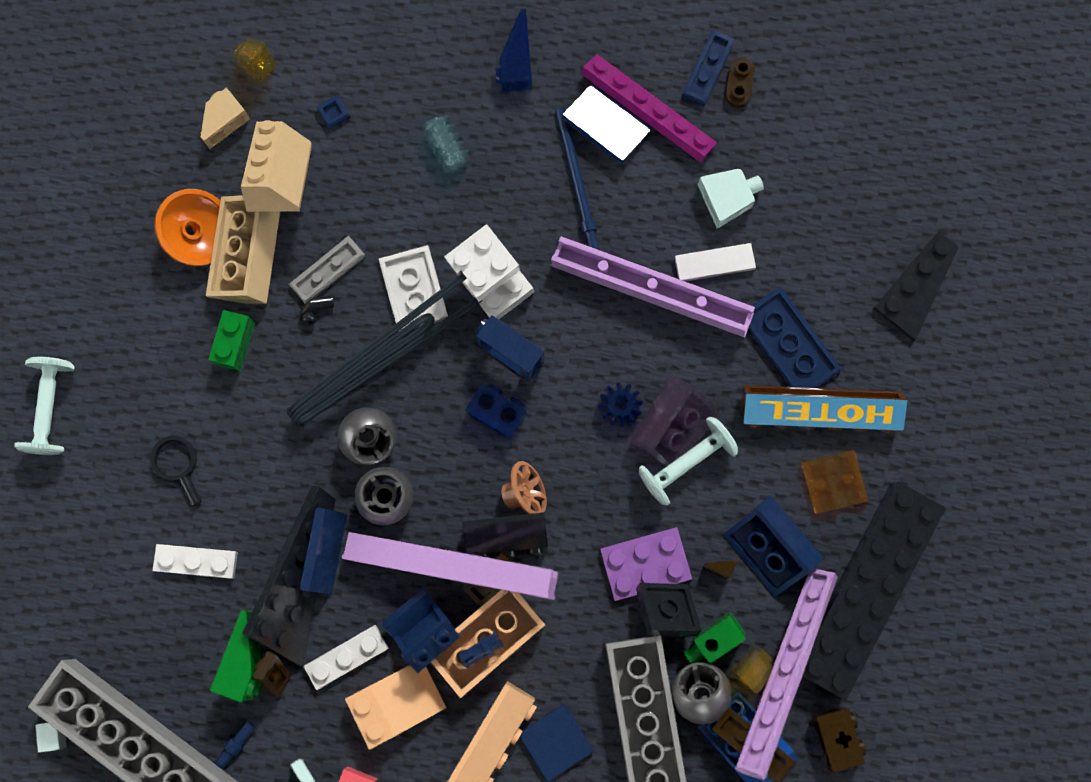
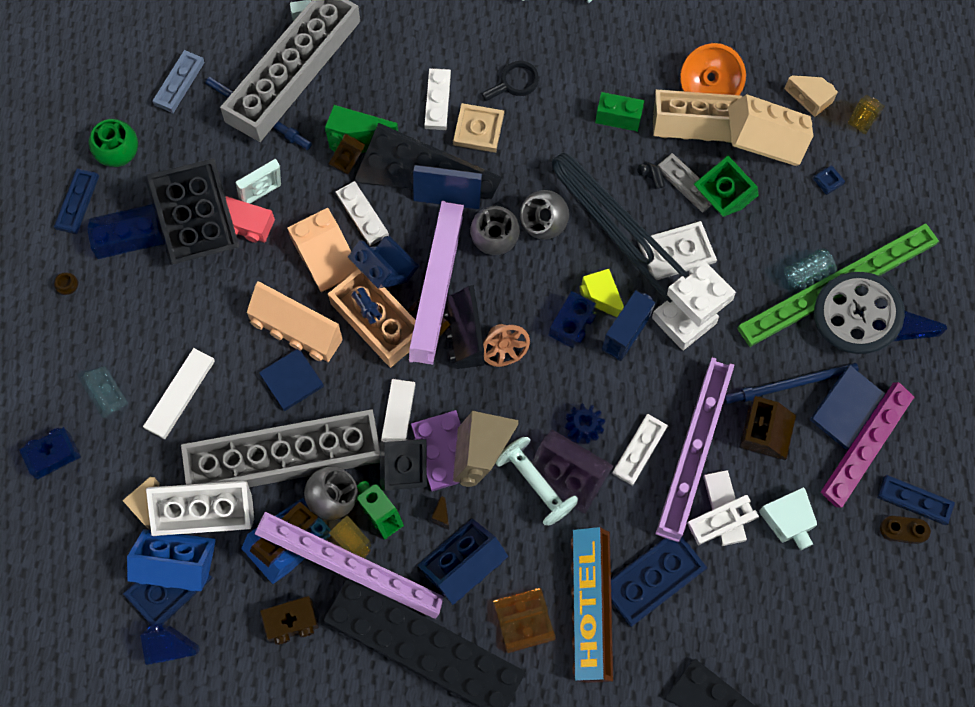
camera: 85 degrees right, 10 degrees down
(240, 511) = (478, 128): none -> tan plate
(342, 225) = (727, 187): none -> green slope
(464, 375) = (602, 290): none -> neon yellow slope
(465, 117) = (803, 303): none -> bright green plate
(537, 86) = (877, 288): none -> wedge
(602, 616) = (398, 410): none -> white tile
(630, 209) = (768, 428): none -> dark brown slope
(648, 347) = (639, 449): none -> white tile
(655, 520) = (479, 446): none -> dark tan slope
(733, 265) = (722, 520): none -> white plate

